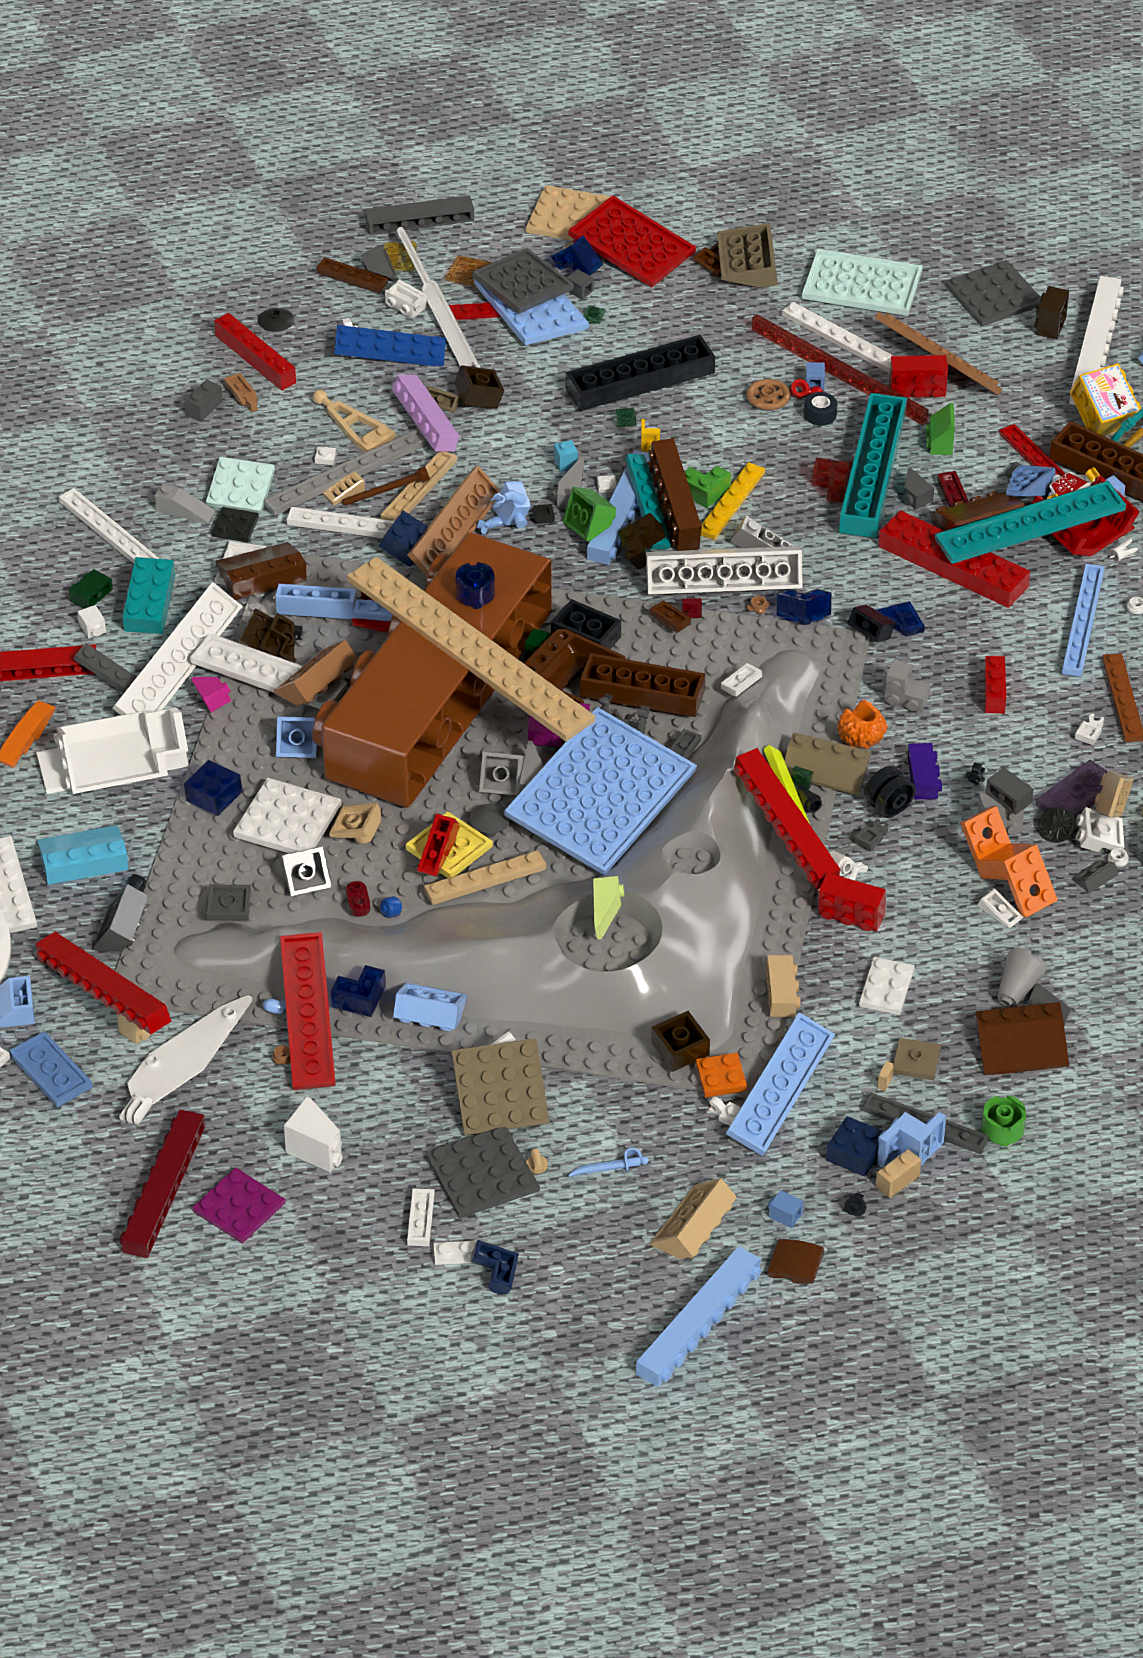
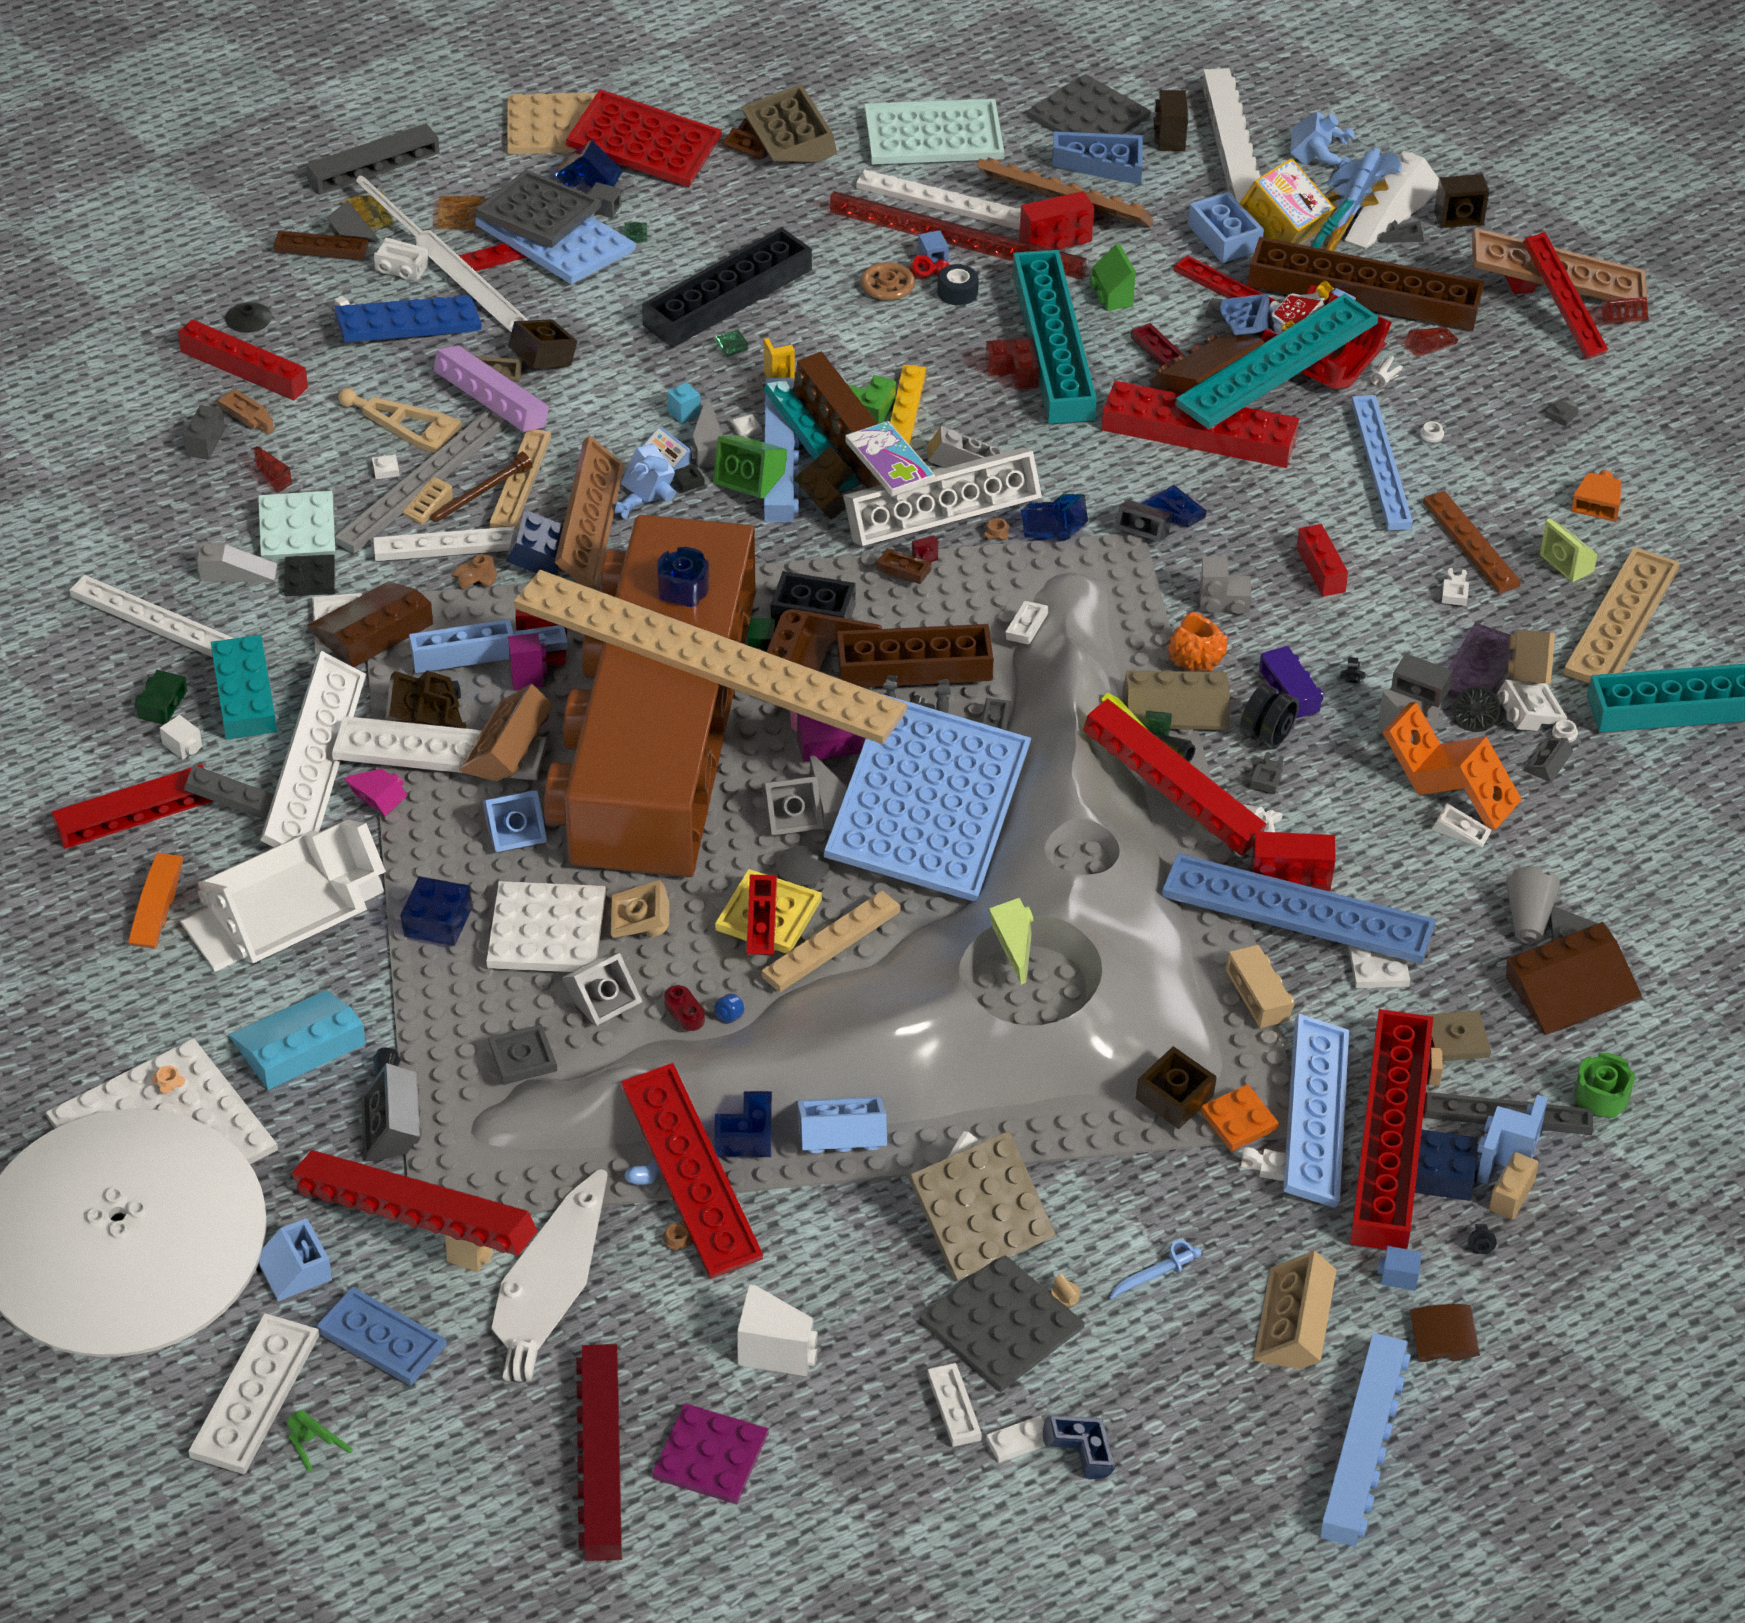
camera: 20 degrees left, 0 degrees up
(242, 440) = (273, 470): none -> clear red slope
(355, 623) = (526, 660): none -> magenta brick
(359, 549) = (479, 569): none -> medium nougat plate
(538, 489) = (670, 447): none -> slope
(689, 532) = (890, 458): none -> tile
(835, 1096) = (1392, 1131): none -> red brick
(840, 937) = (1299, 908): none -> medium blue plate
(917, 490) = (1116, 354): dark grey slope -> none
(982, 328) = (1100, 155): none -> medium blue wedge
(1051, 406) = (1224, 226): none -> light blue brick

